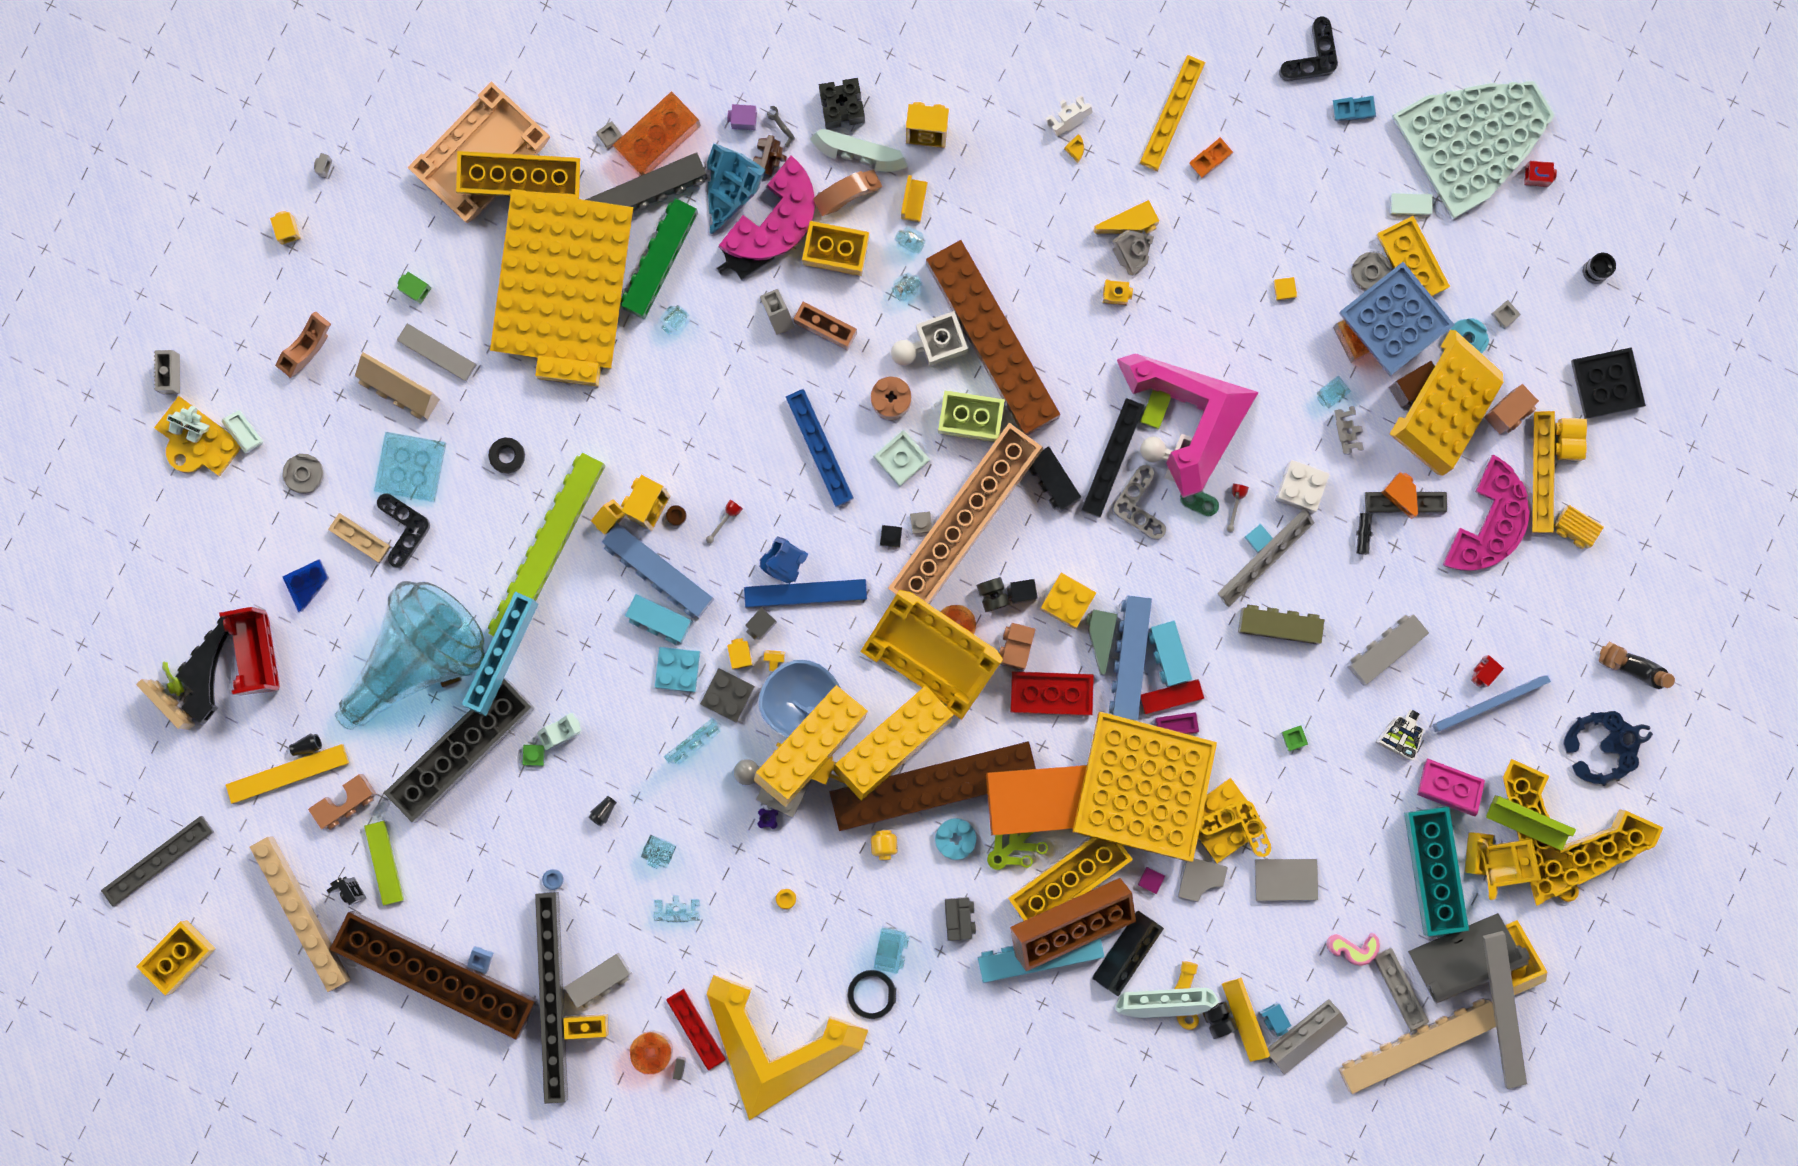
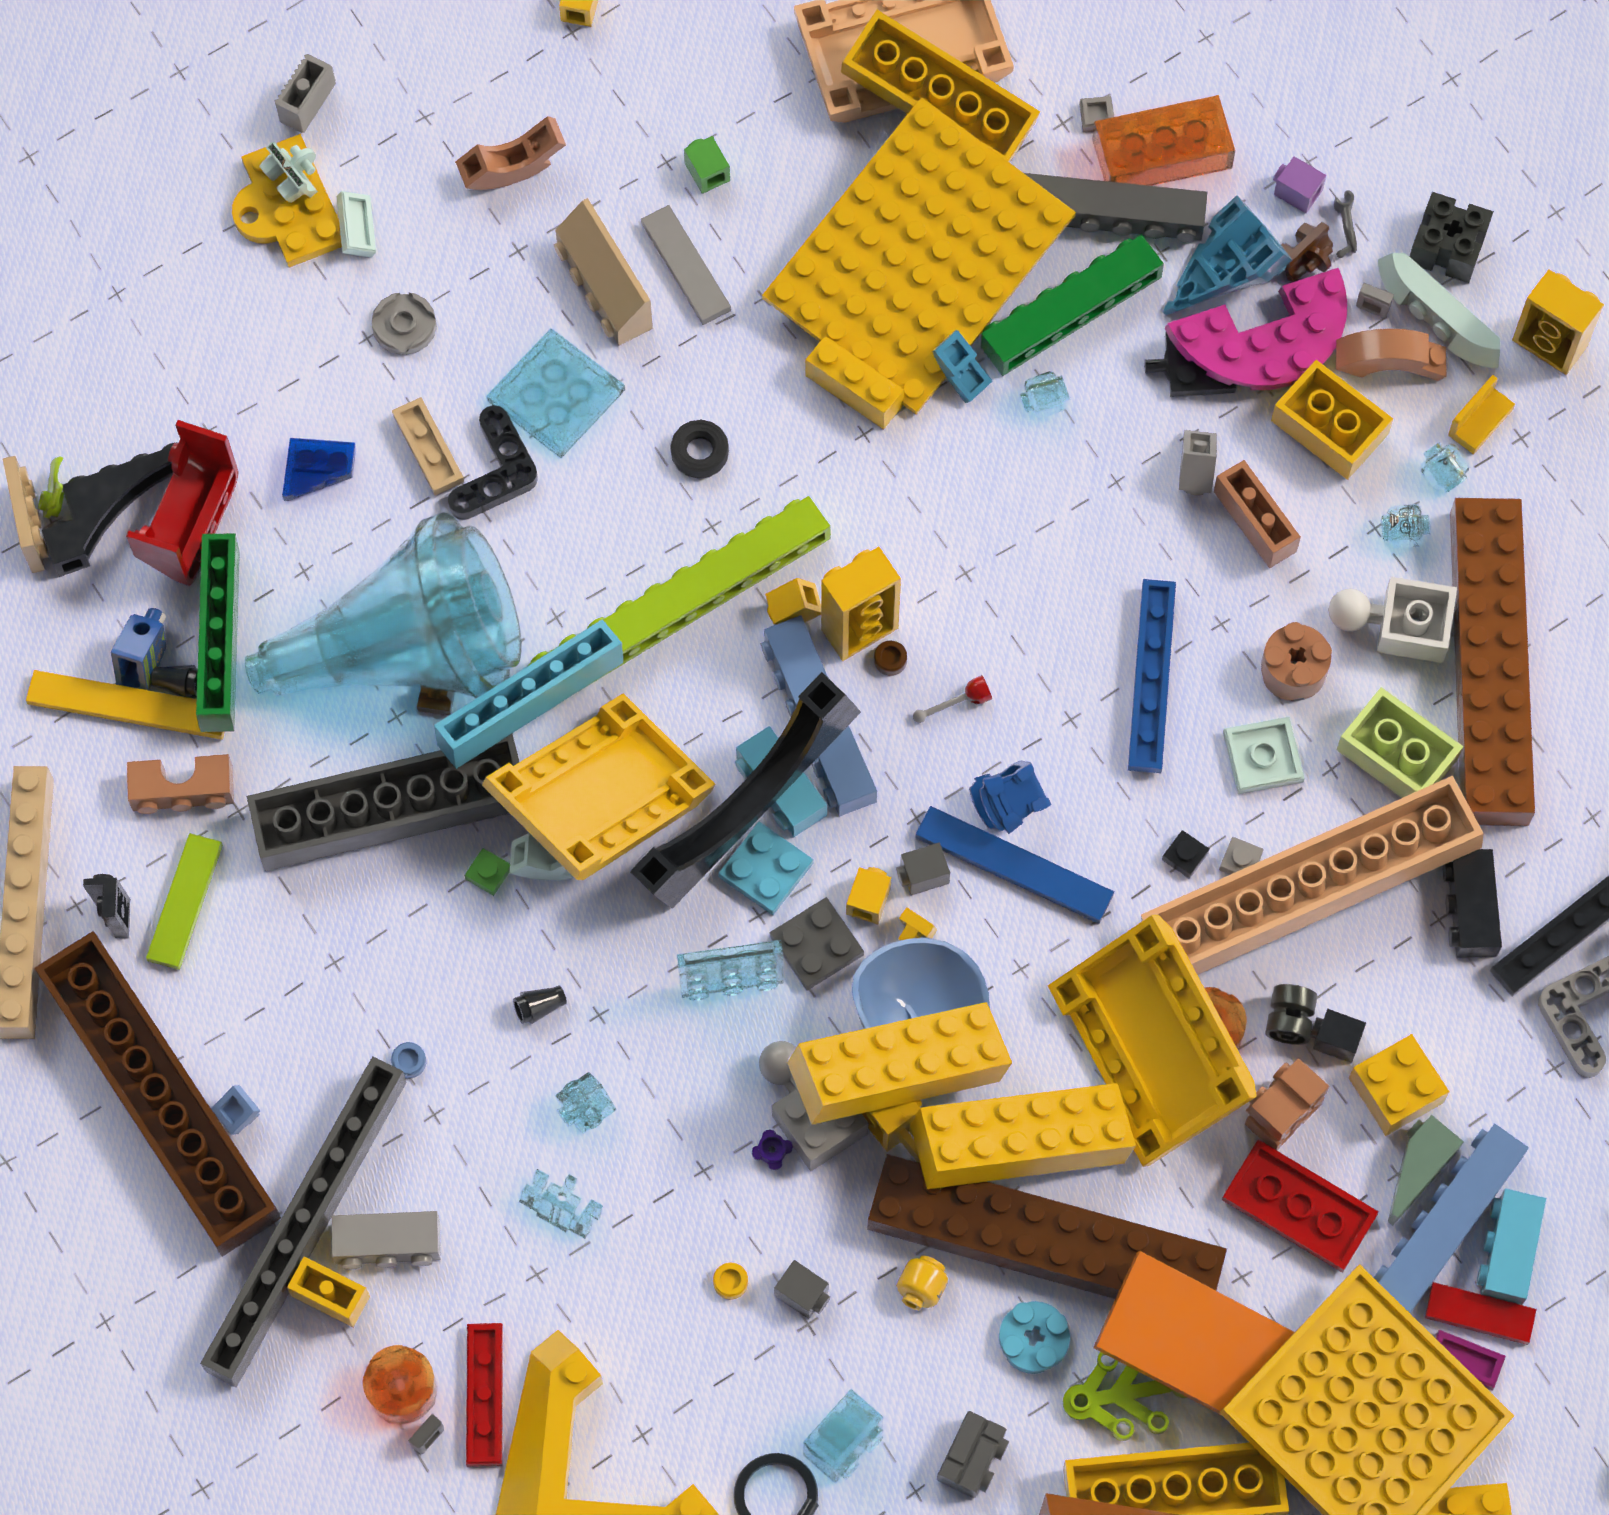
camera: 30 degrees right, 15 degrees down
(275, 742) = (139, 649): none -> blue torso
(311, 710) = (218, 633): none -> green brick
(567, 682) = (601, 788): none -> yellow slope
(621, 330) = (960, 366): none -> dark azure slope
(661, 589) = (682, 862): none -> black arch
(820, 163) = (1374, 300): none -> light grey tile
(826, 884) = (802, 1290): none -> dark grey brick

